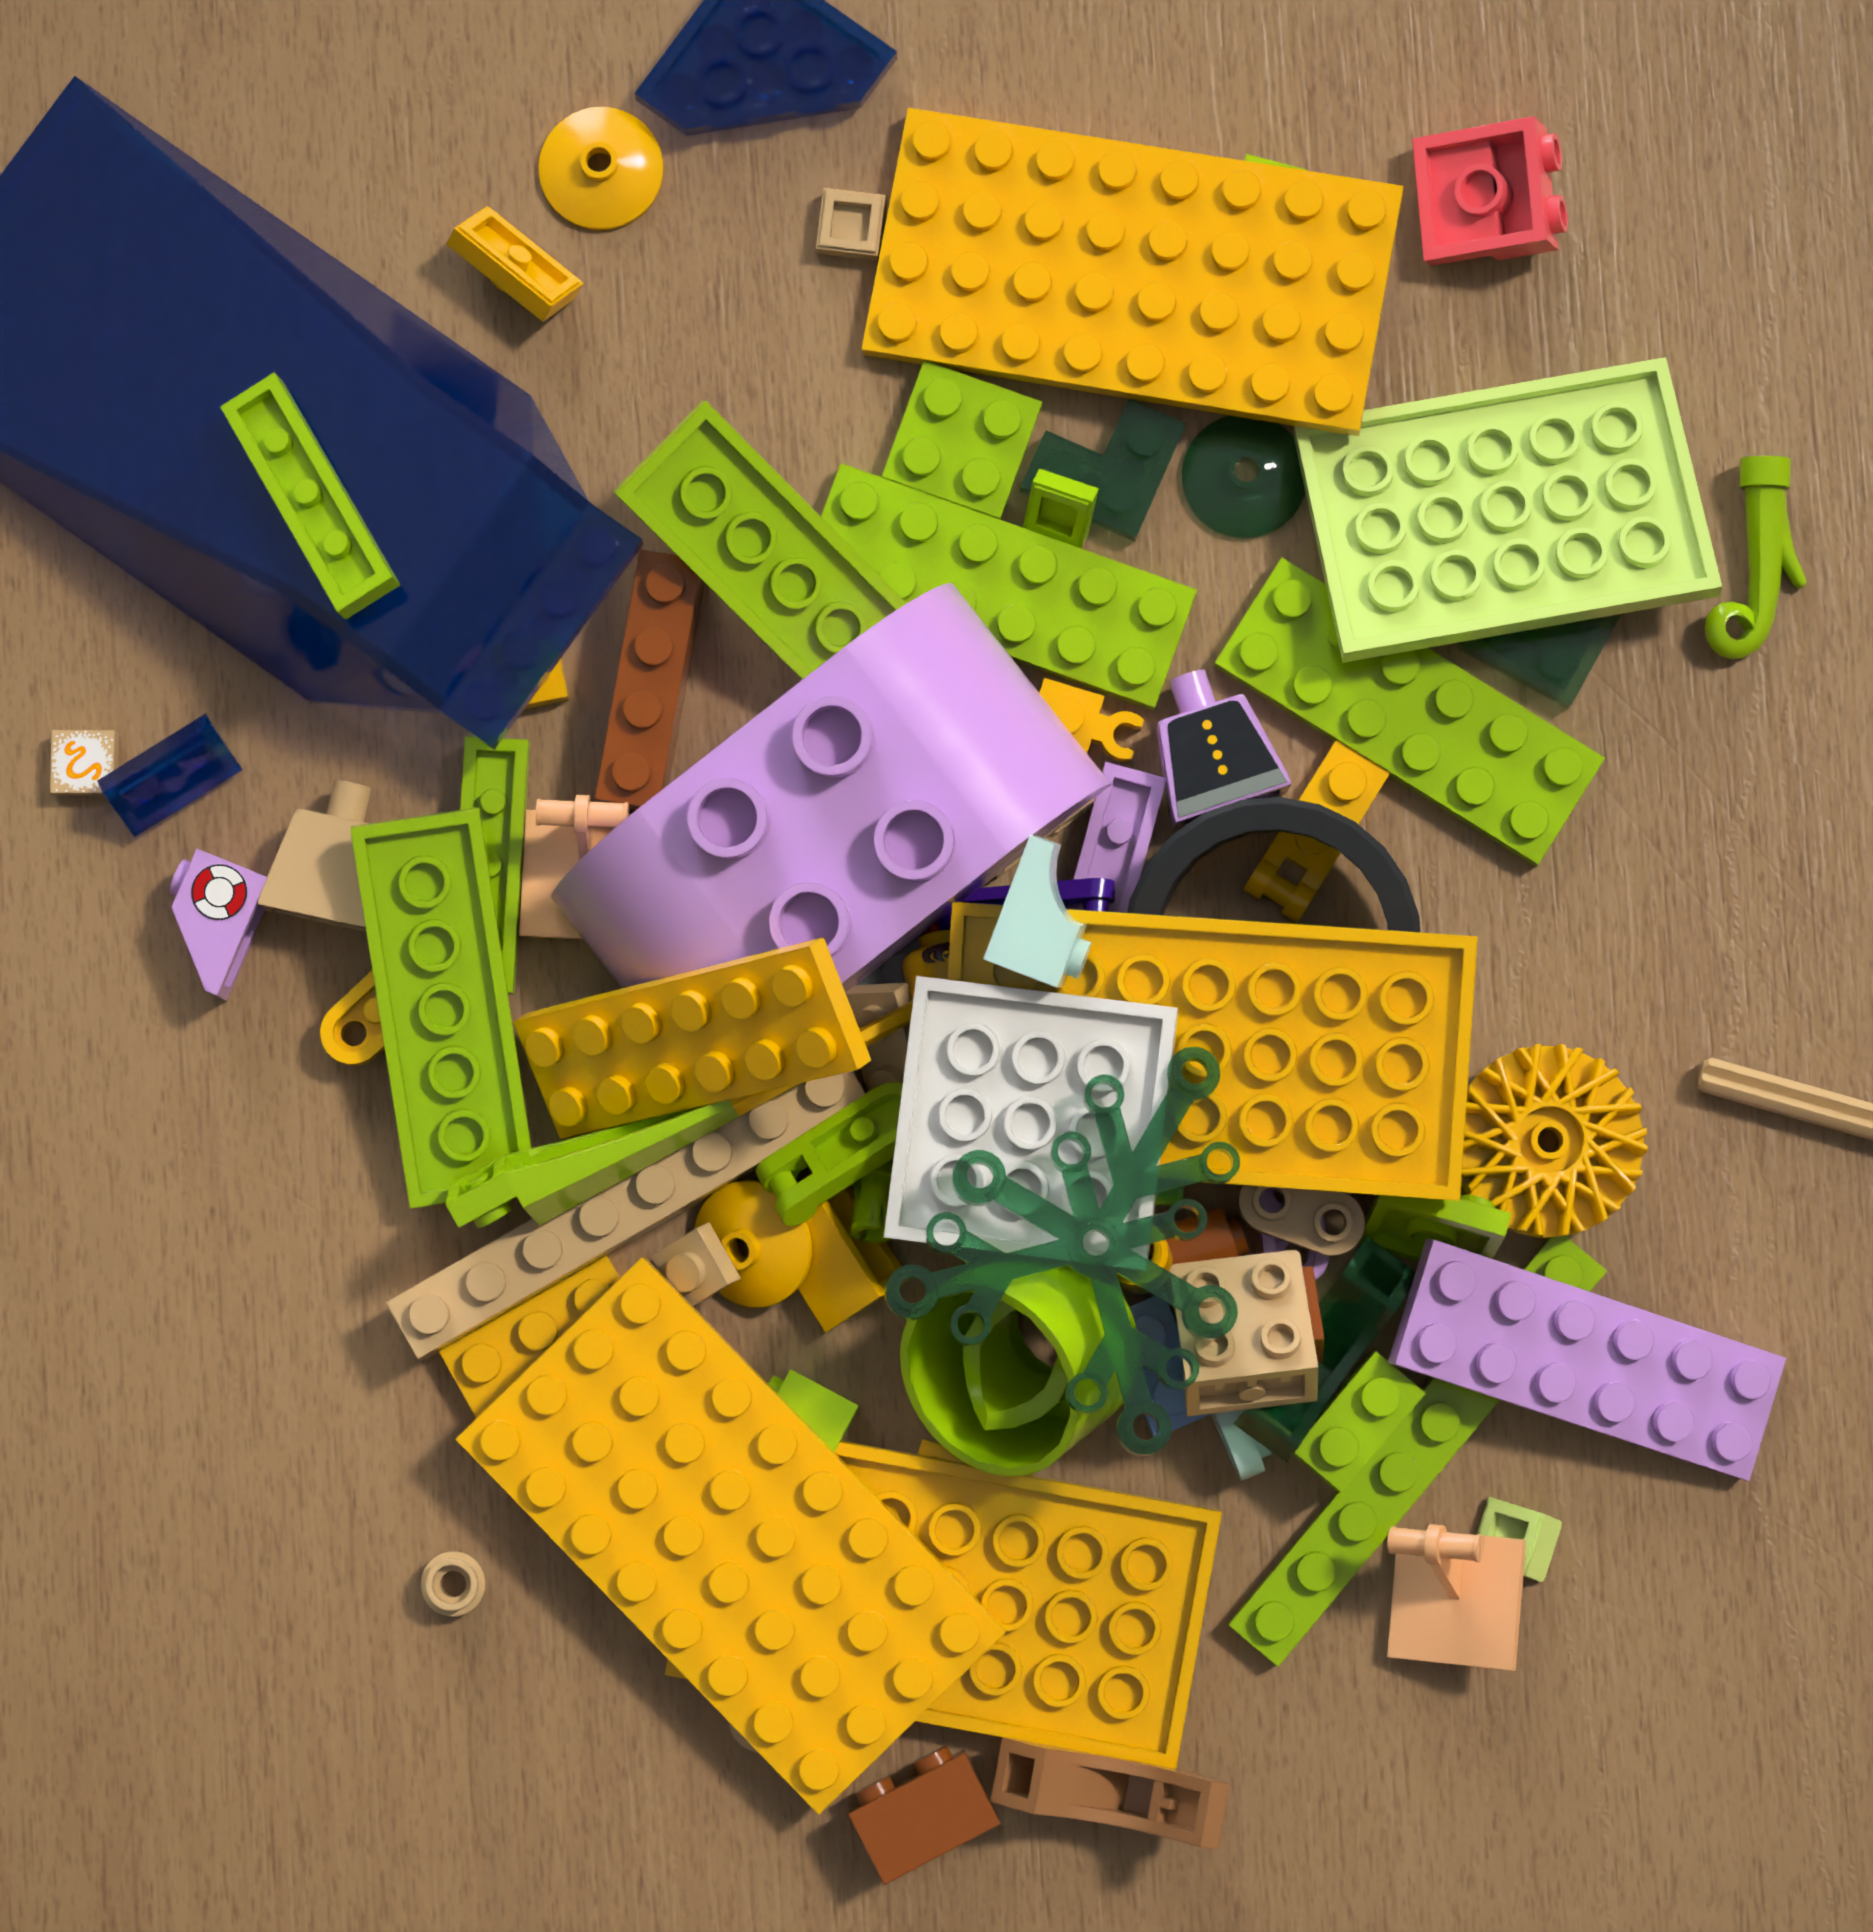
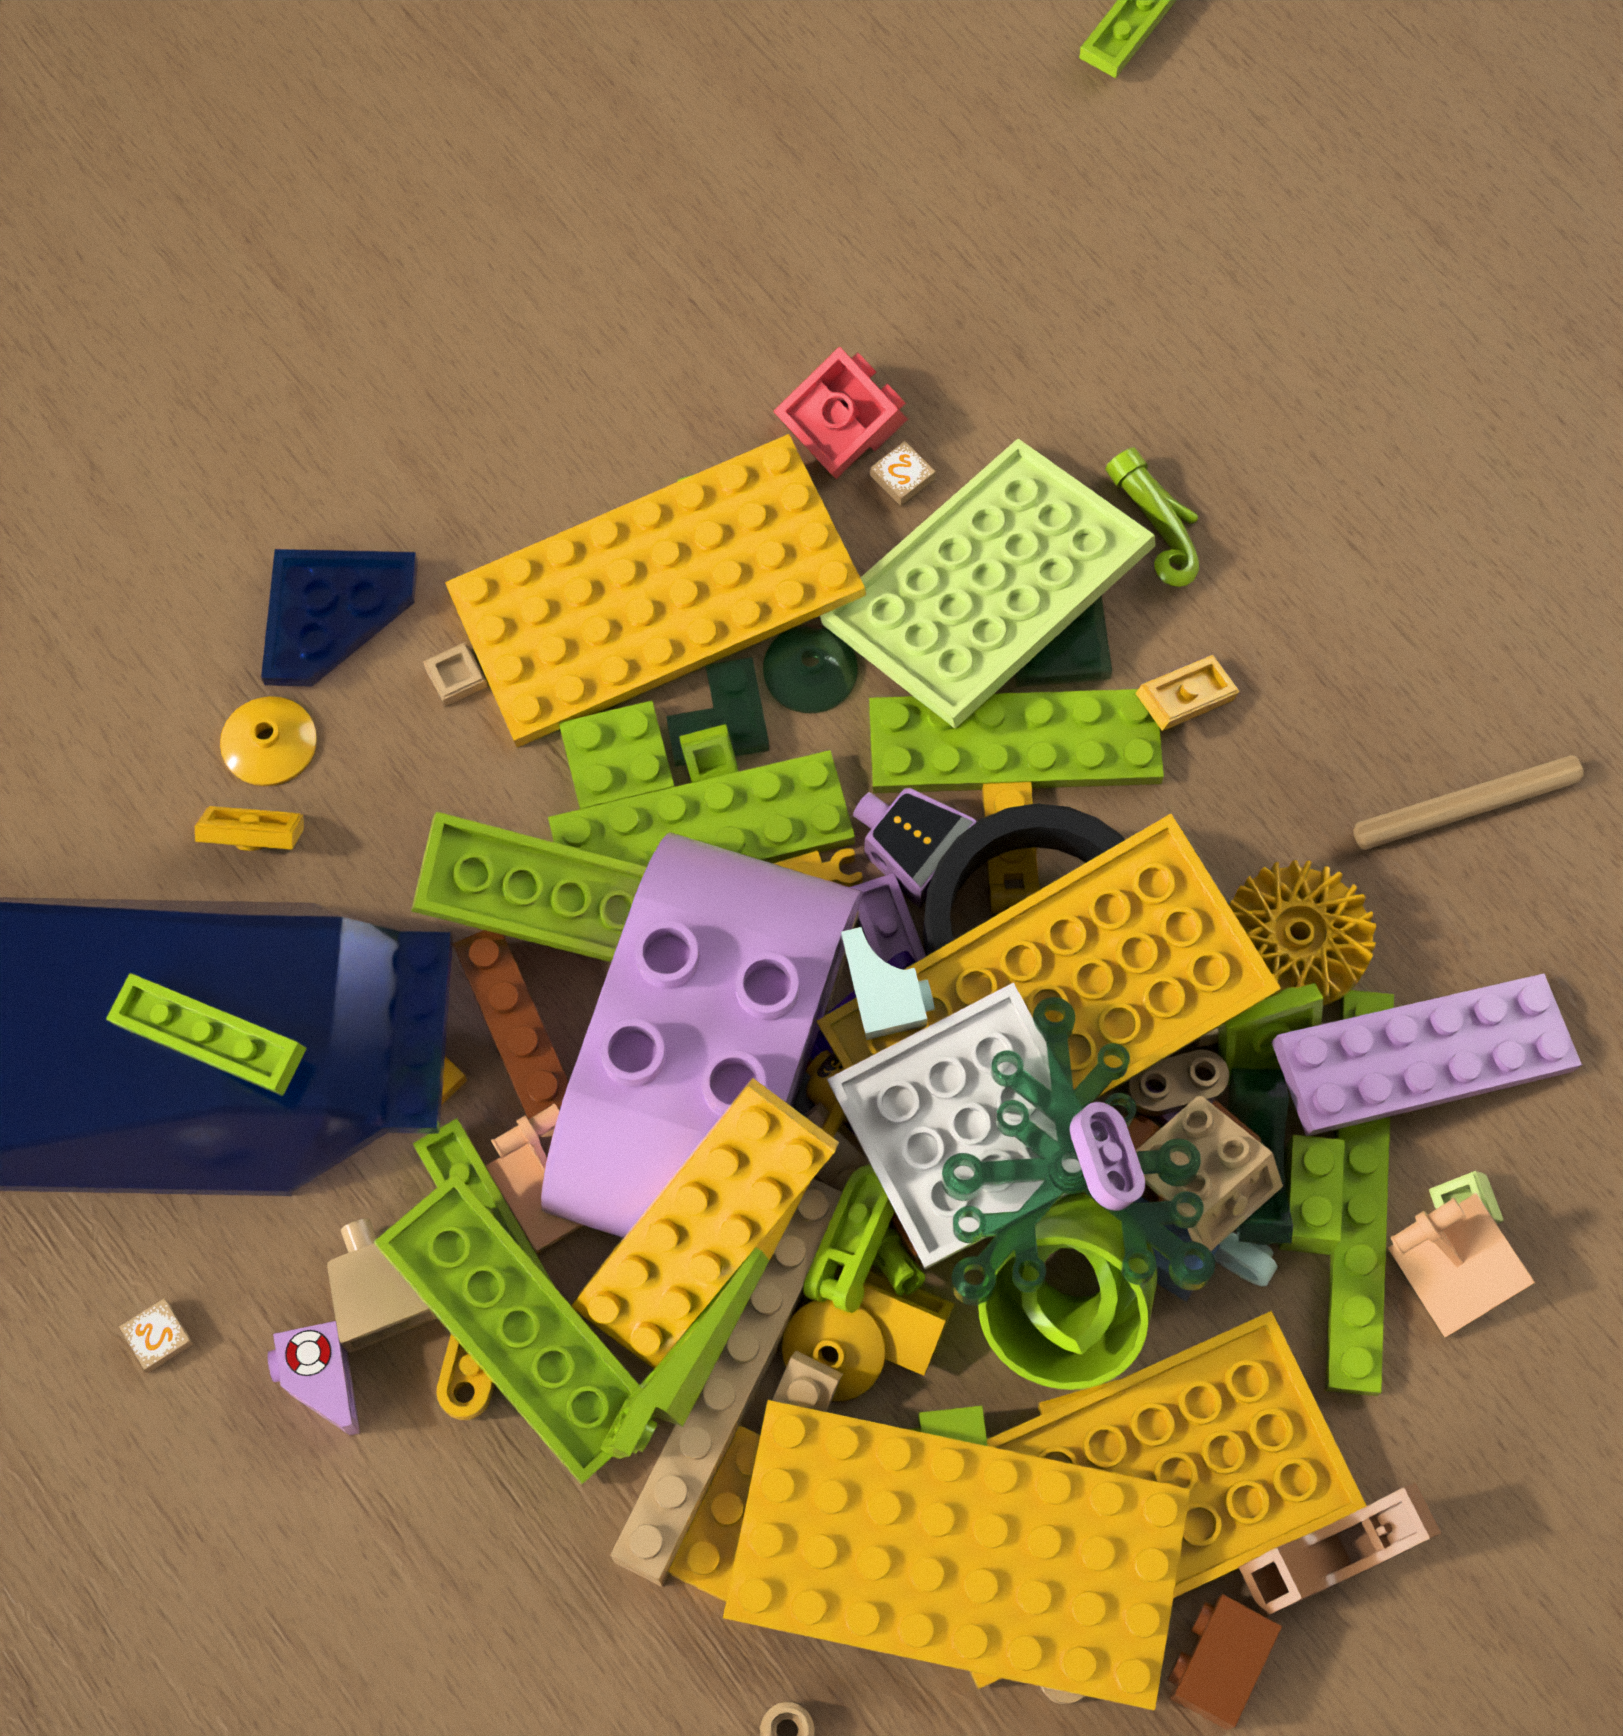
camera: 35 degrees left, 15 degrees down
(169, 775) = (222, 1302): clear blue plate -> none
(1134, 1265) = (1111, 1160): none -> lavender plate
(1508, 310) = (902, 473): none -> tile
(1635, 786) = (1187, 692): none -> yellow plate

